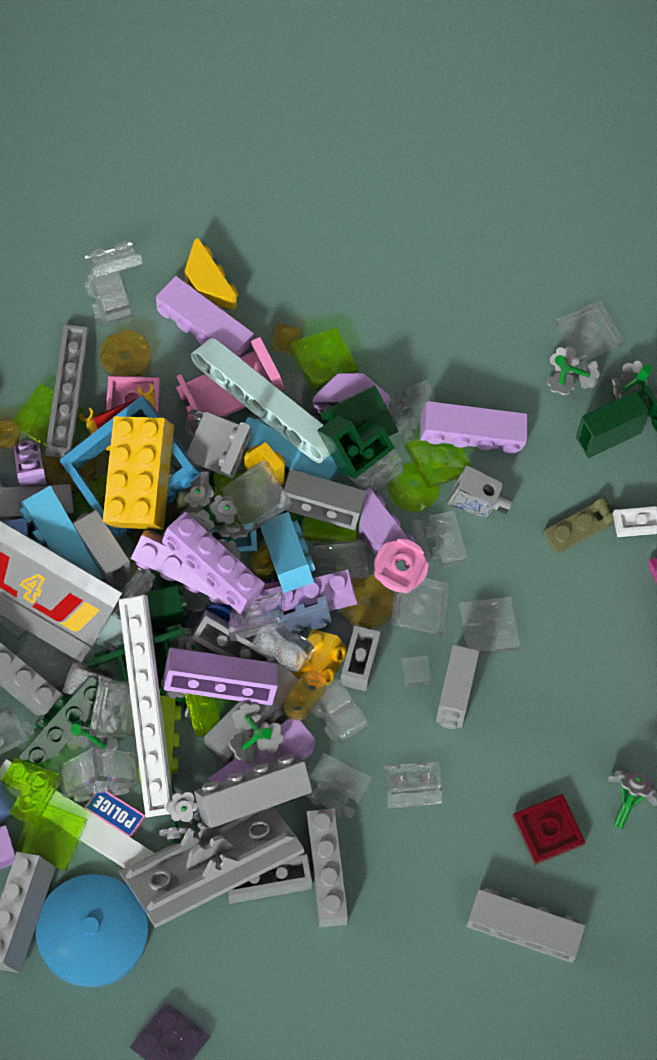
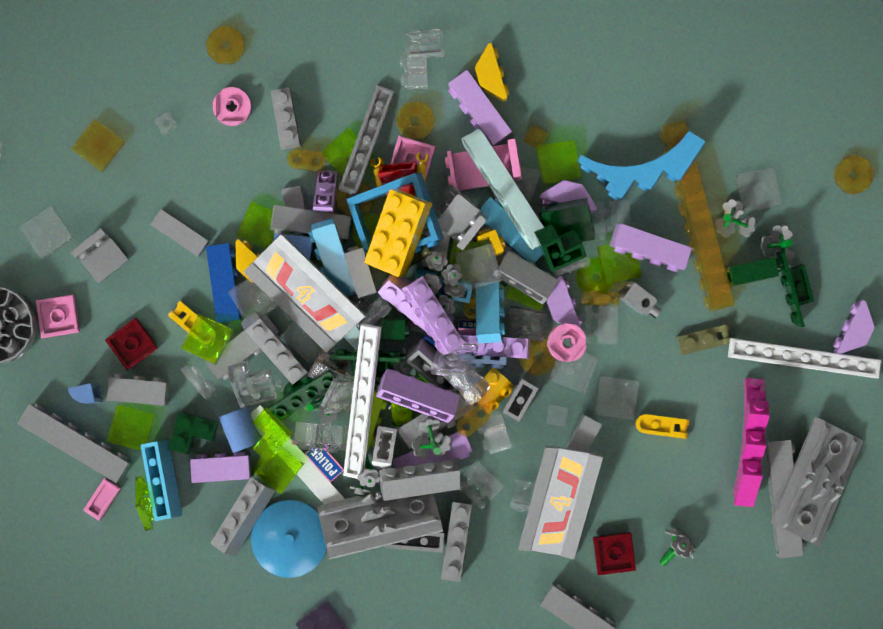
camera: 20 degrees right, 20 degrees up
(192, 763) = (384, 448): none -> white brick
(428, 503) = (595, 299): none -> clear yellow plate
(442, 340) = (674, 163): none -> dark azure arch
(453, 770) = (560, 501): none -> light grey hinge
(522, 380) = (699, 227): none -> clear yellow brick
(560, 646) = (662, 426): none -> yellow plate

